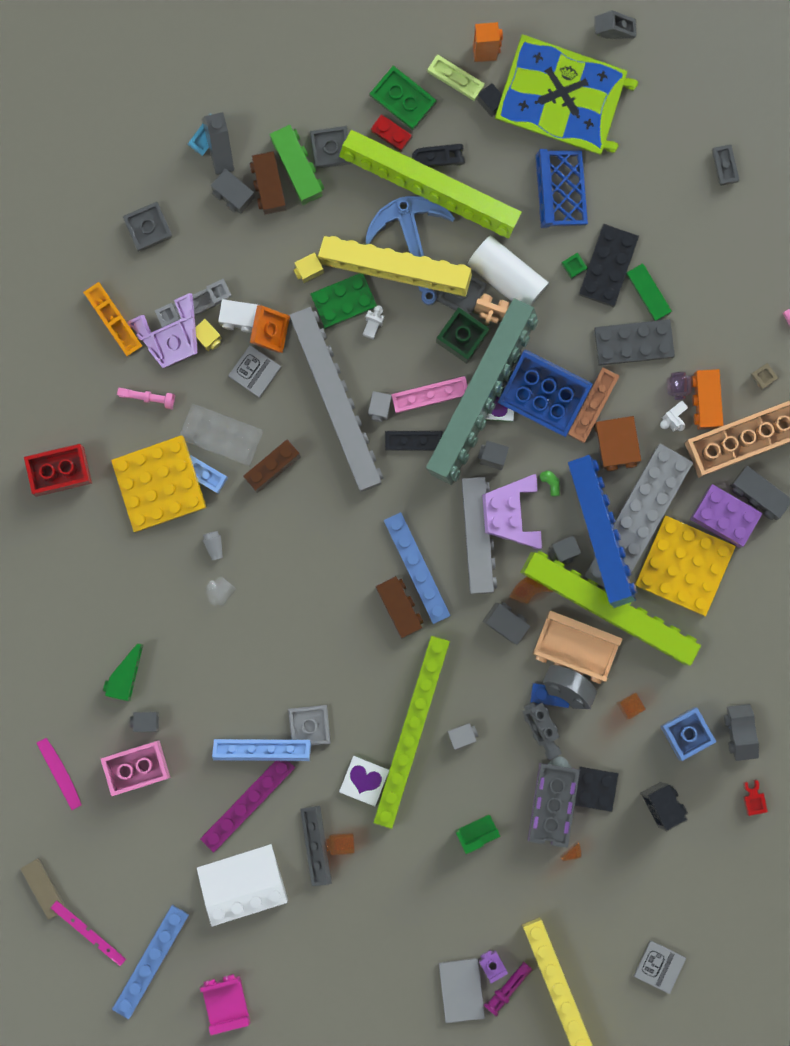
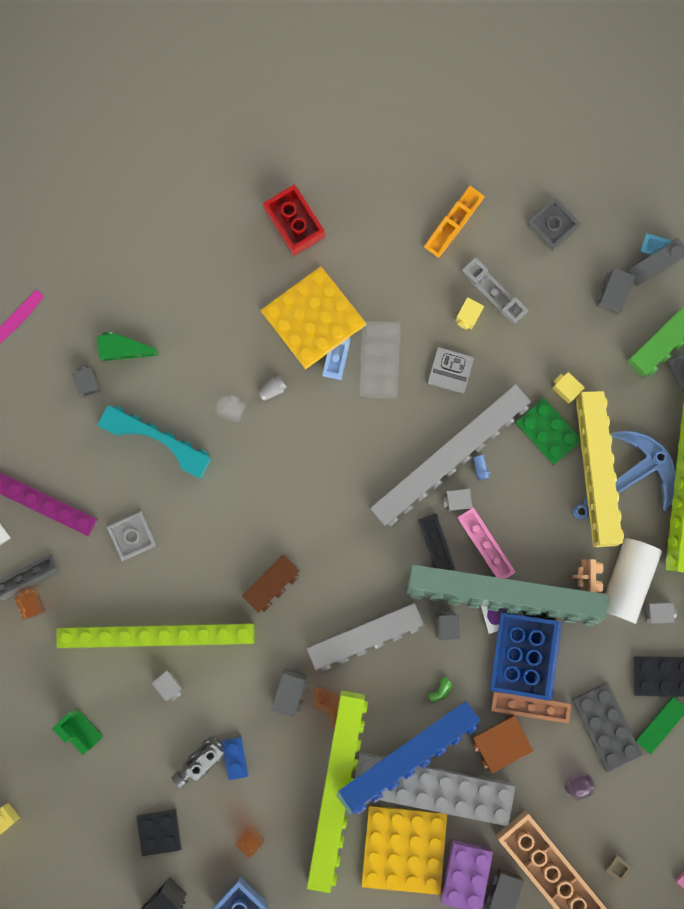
camera: 70 degrees right, 0 degrees up
(135, 768) = (39, 387): bright pink brick -> none
(168, 399) = (394, 299): bright pink piece -> none
(173, 341) = (452, 284): lavender wing -> none
(197, 702) = (120, 424): none -> teal arch
(237, 315) = (498, 337): white brick -> none
(261, 750) = (93, 499): light blue plate -> none
(267, 183) = (635, 321): reddish brown brick -> none
(269, 329) = (495, 370): orange plate -> none
(272, 466) = (365, 417): reddish brown brick -> none
(356, 374) = (481, 468): none -> medium blue pin
(364, 781) = (96, 605): white tile -> none
(374, 321) = (538, 467): white piece -> none
(417, 568) = (315, 588): medium blue plate -> none
(462, 335) = (554, 556): dark green brick -> none
(466, 303) = (585, 549): dark grey tile -> none
(503, 512) = (395, 654): lavender wing -> none
(546, 256) = (660, 612): none -> light grey brick
(554, 803) = (130, 797): dark grey piece -> none
(564, 550) = (377, 726): dark grey brick -> none
(570, 686) = (248, 775): dark grey brick -> none
(572, 853) = (89, 829): clear orange slope -> none
(574, 265) = (661, 642): green tile -> none
(577, 646) = (289, 768): light nougat panel -> none
(671, 418) = (544, 789): white piece -> none
(707, 399) = (575, 819): orange brick -> none

